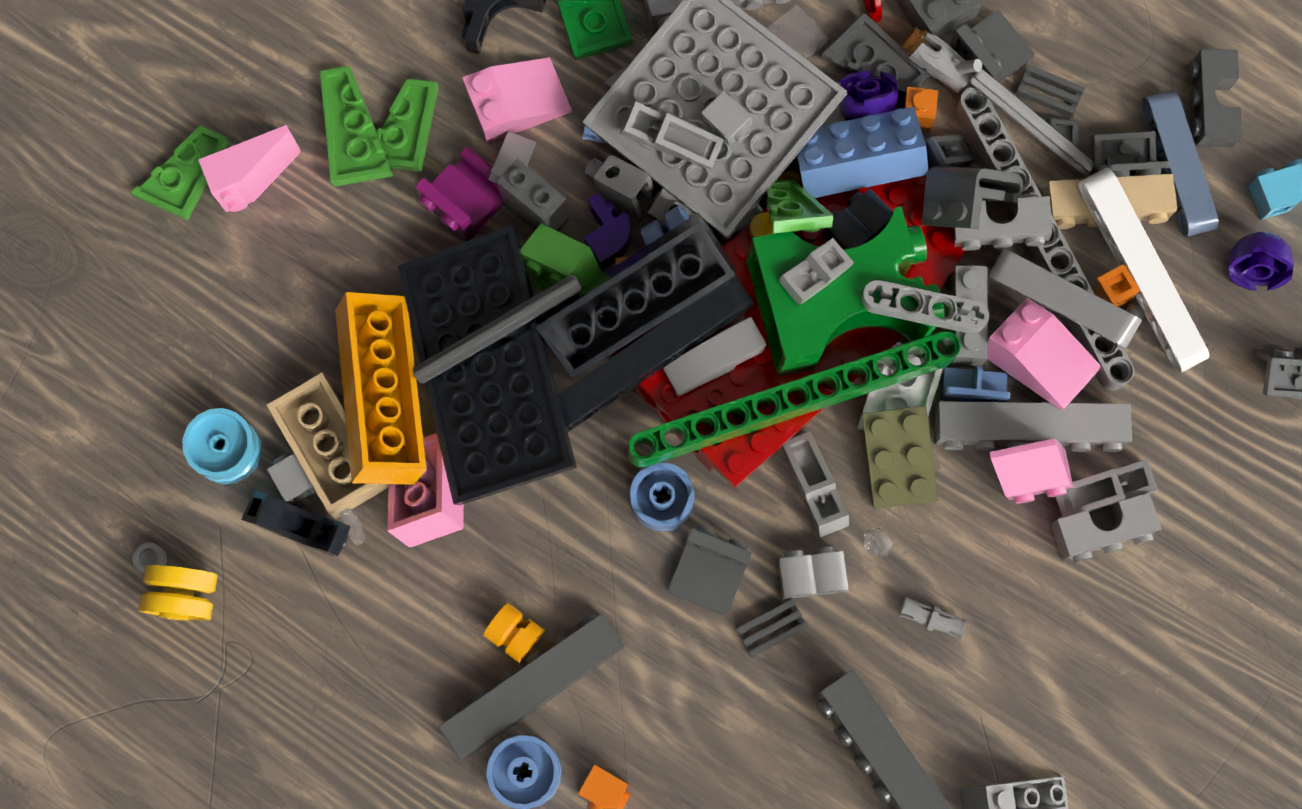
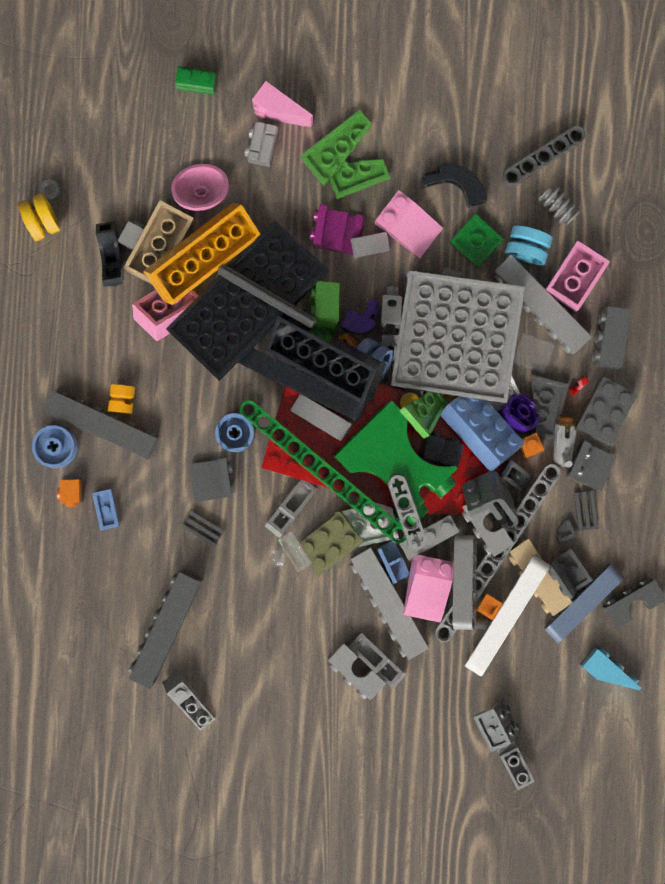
camera: 60 degrees right, 10 degrees up
(135, 262) = (196, 80): none -> green brick
(180, 179) = (252, 73): bright green wing -> none
(206, 436) = (122, 179): medium azure wheel -> none
(281, 225) = (262, 144): none -> light grey brick
(285, 341) = (200, 187): none -> bright pink dish
(356, 531) = (128, 281): clear tile -> none
(531, 197) = (352, 270): dark grey panel -> none
(661, 753) = (106, 509): none -> medium blue plate
(671, 135) = (426, 323): light grey slope -> none
(727, 119) = (452, 348): light grey brick -> none
(812, 574) = (241, 533): light grey brick -> none
(816, 271) = (391, 444): light grey slope -> none
(882, 513) = (295, 551): none -> clear tile
(933, 618) = (256, 608): light grey pin -> none
(1032, 122) = (558, 511): light grey axle -> none
(1032, 470) = (360, 617): bright pink slope -> none
(1261, 261) = (552, 674): dark purple cylinder -> none

